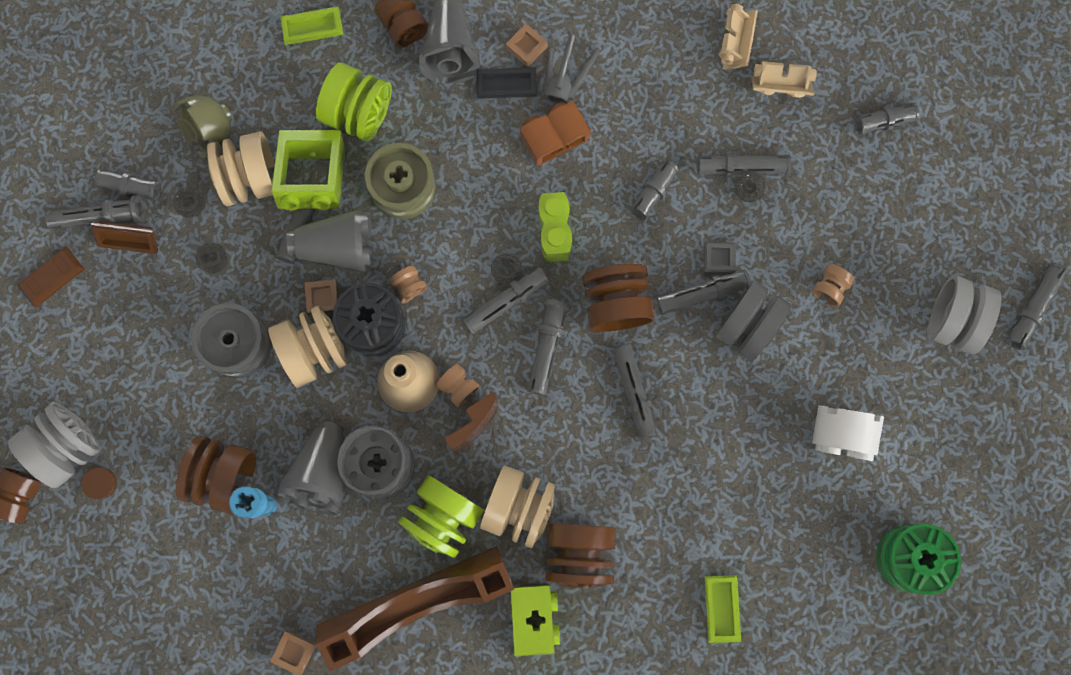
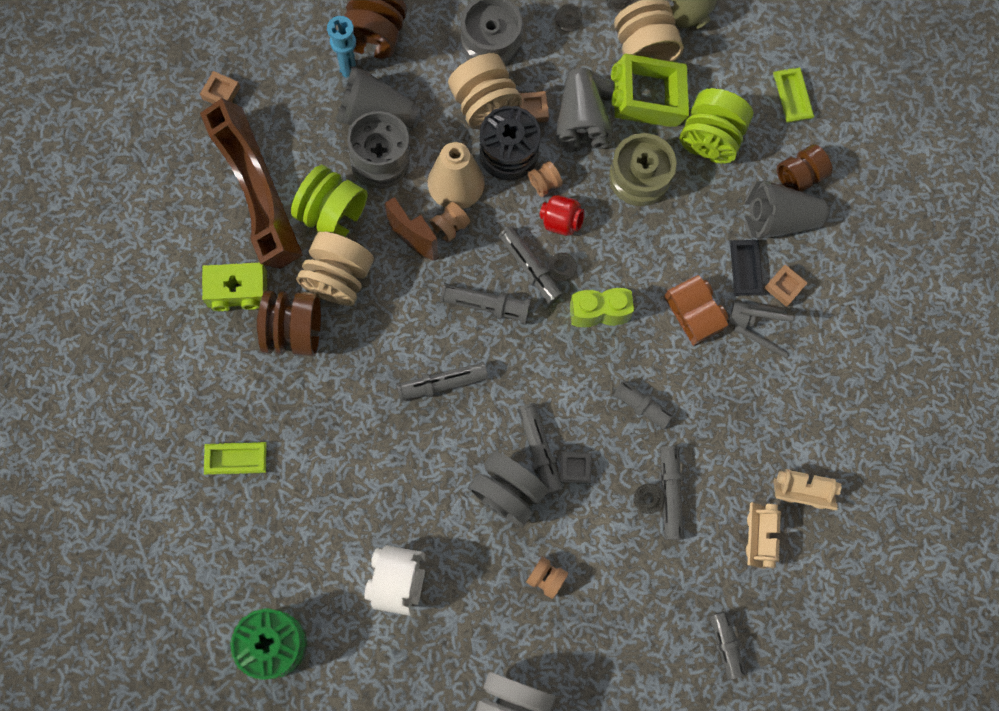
camera: 85 degrees right, 5 degrees down
(450, 266) = (562, 215): none -> red head
(617, 291) = (531, 361): reddish brown wheel -> none

